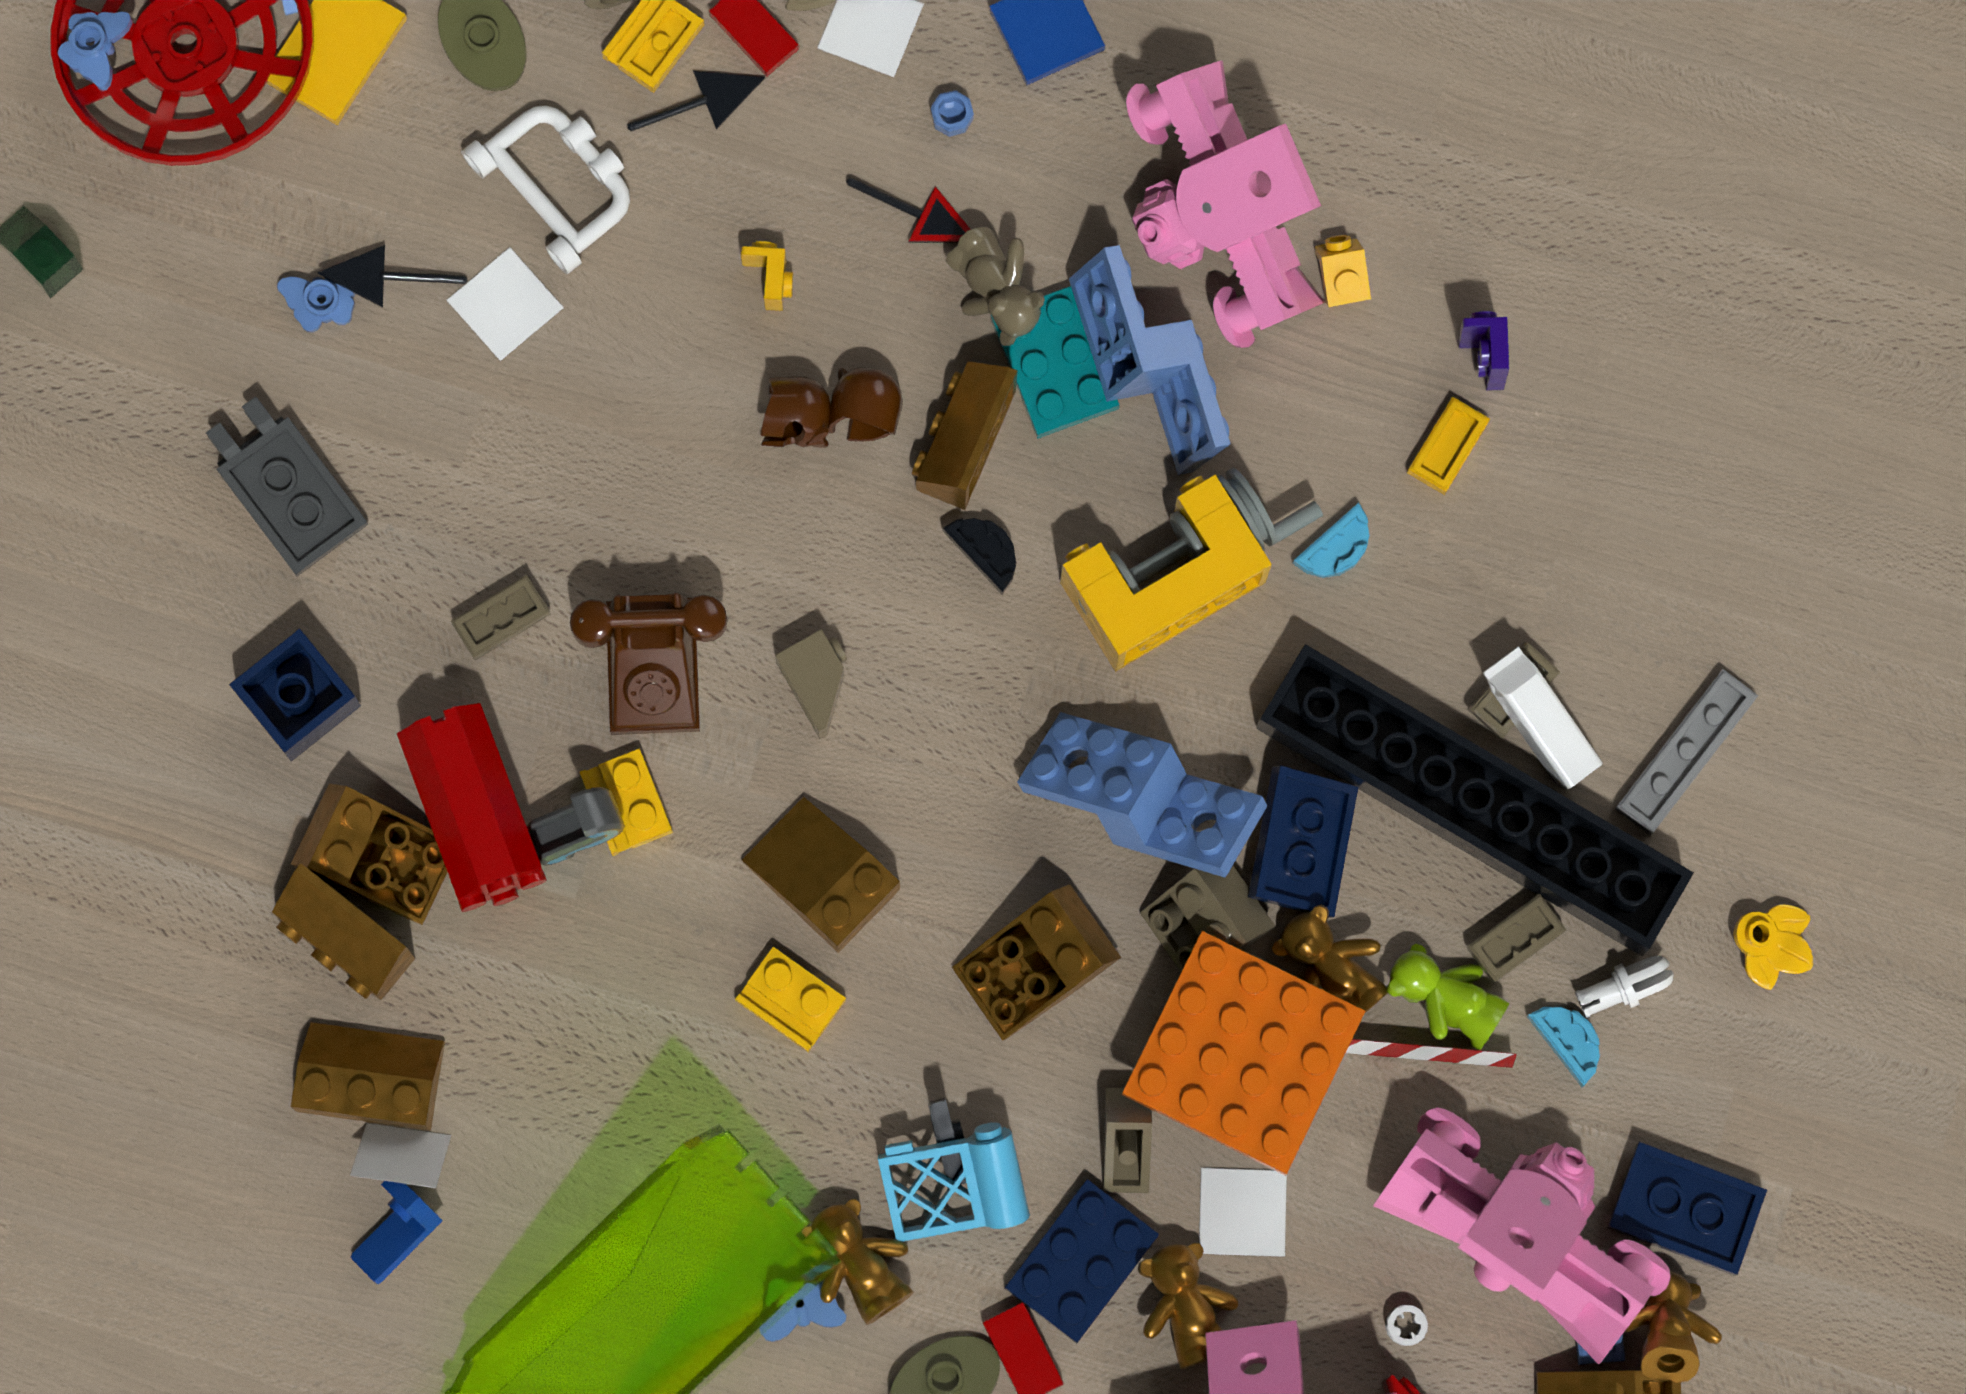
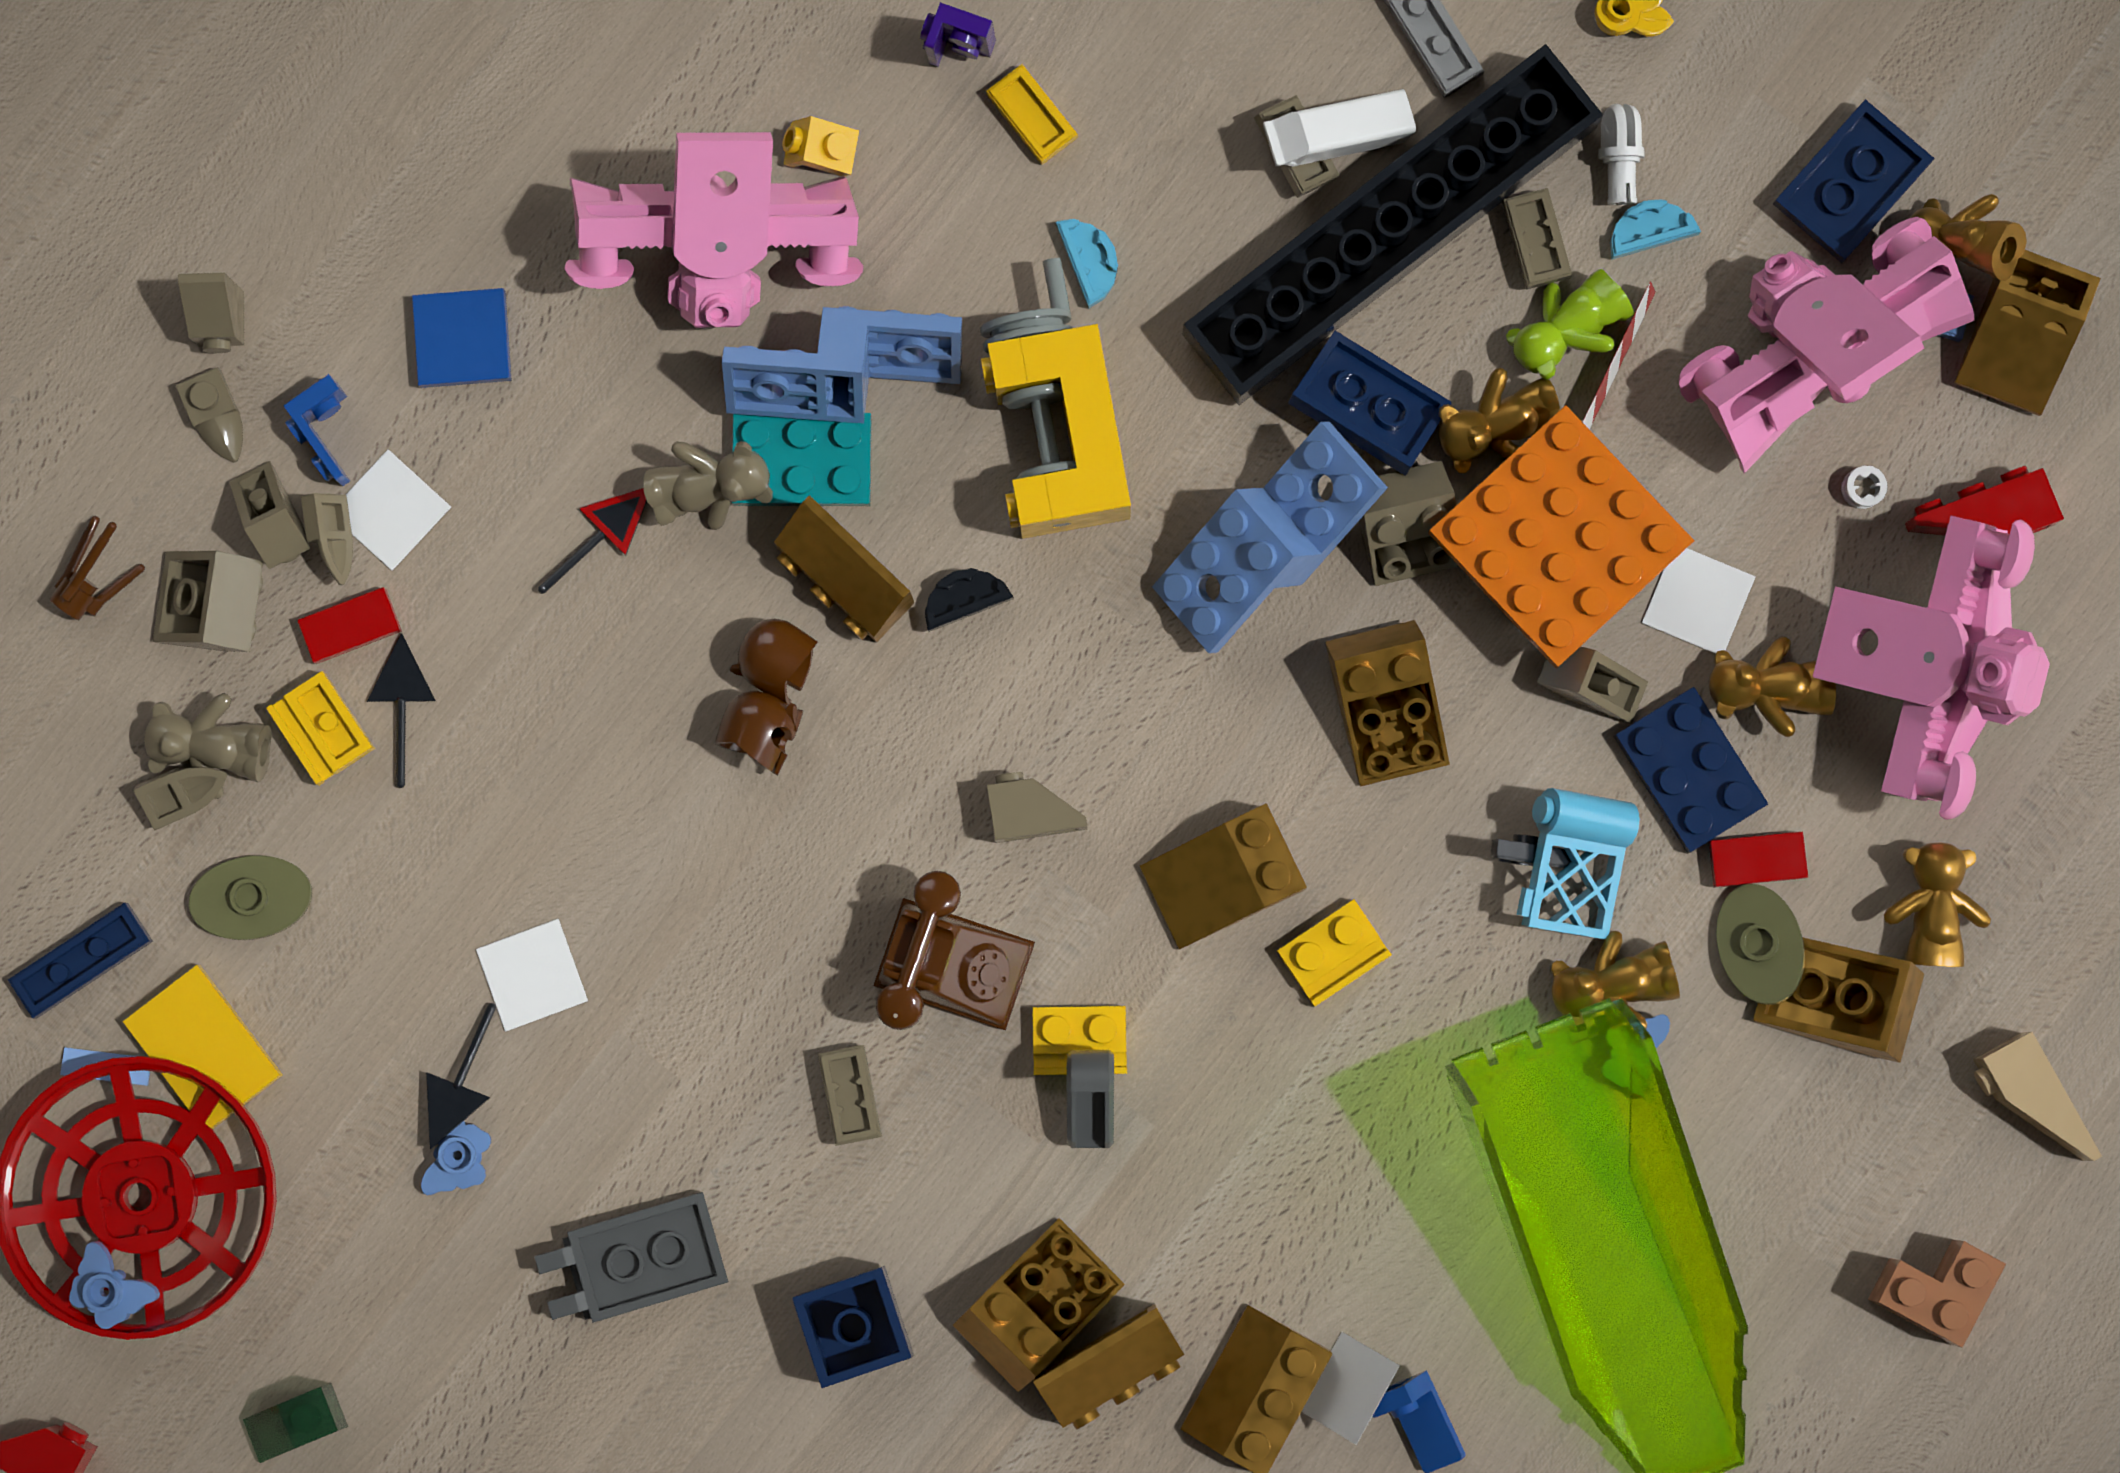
camera: 60 degrees left, 5 degrees up
(471, 807) = (1033, 1193): red brick -> none
(577, 137) = (391, 840): white bar -> none
(778, 280) = (617, 697): yellow bracket -> none
(952, 113) = (513, 463): medium blue tile -> none

